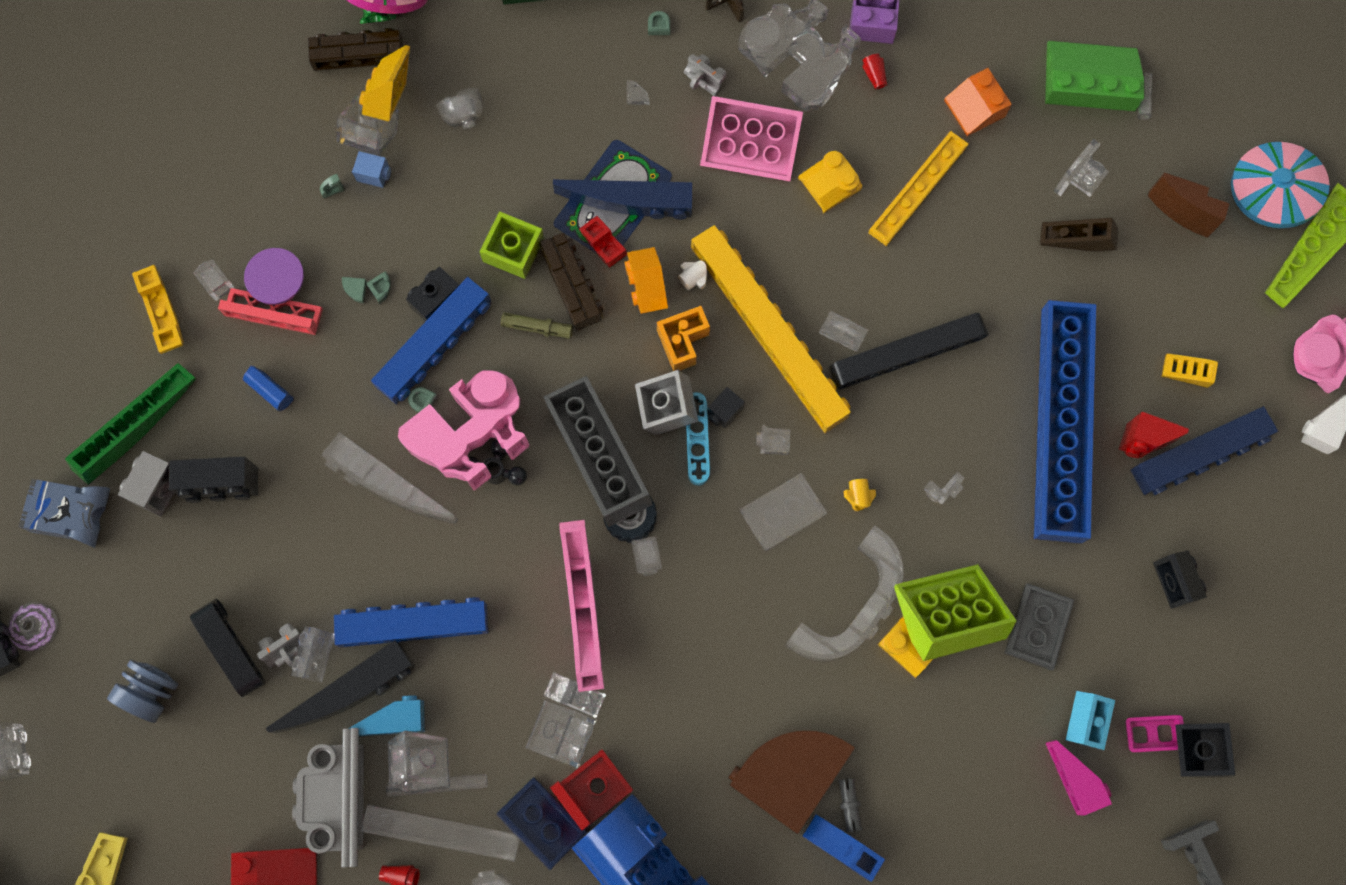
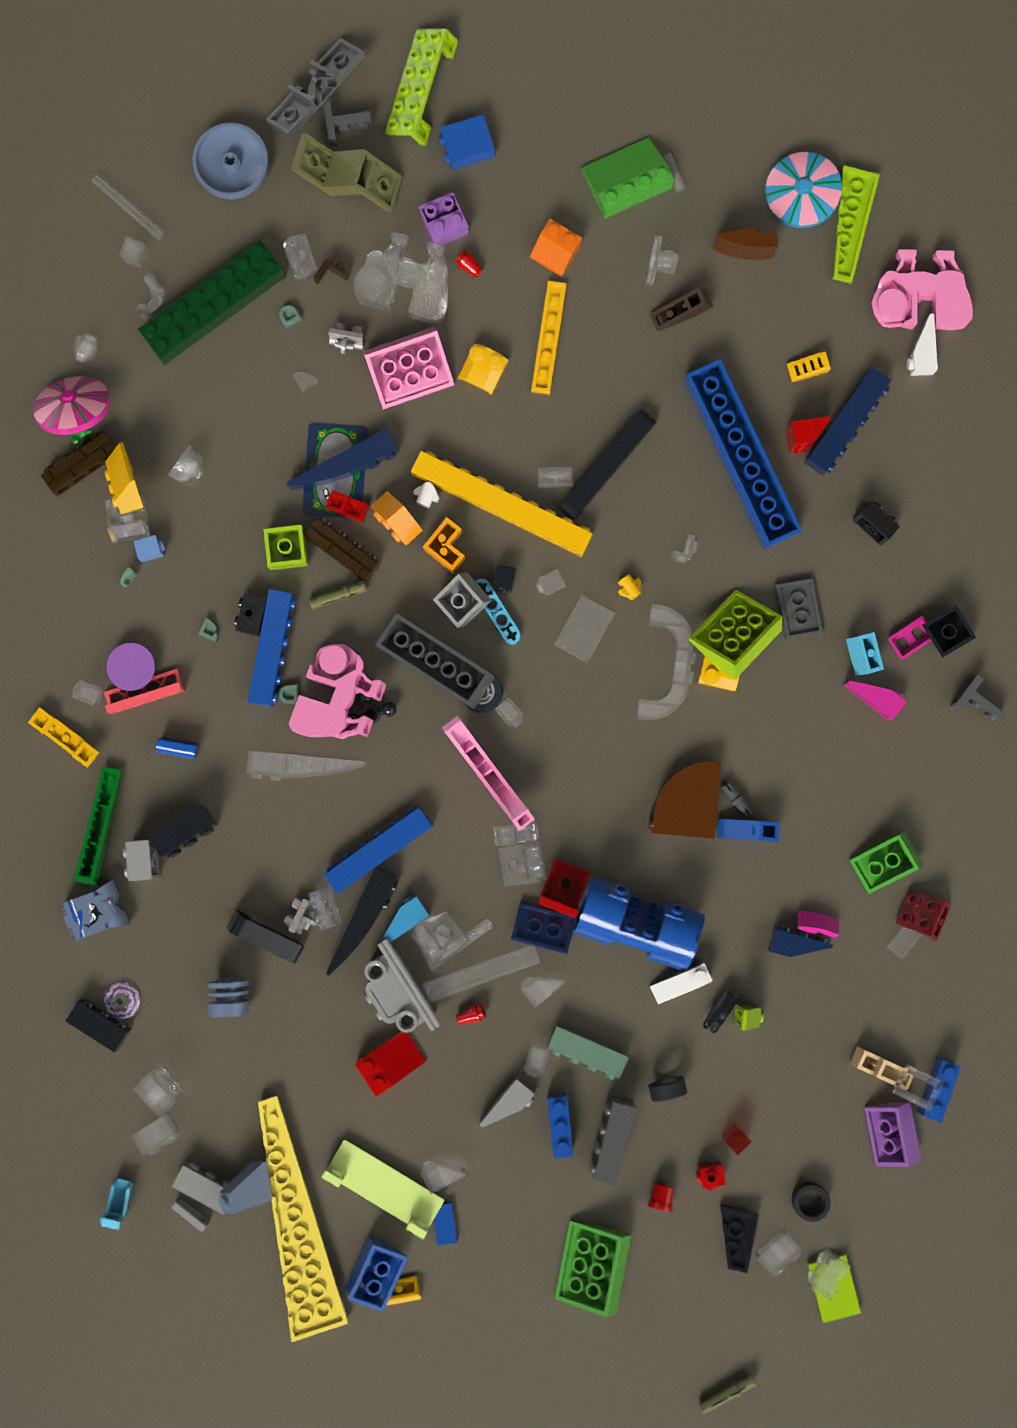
camera: 30 degrees left, 10 degrees up
(355, 288) = (192, 641): sand green tile -> none

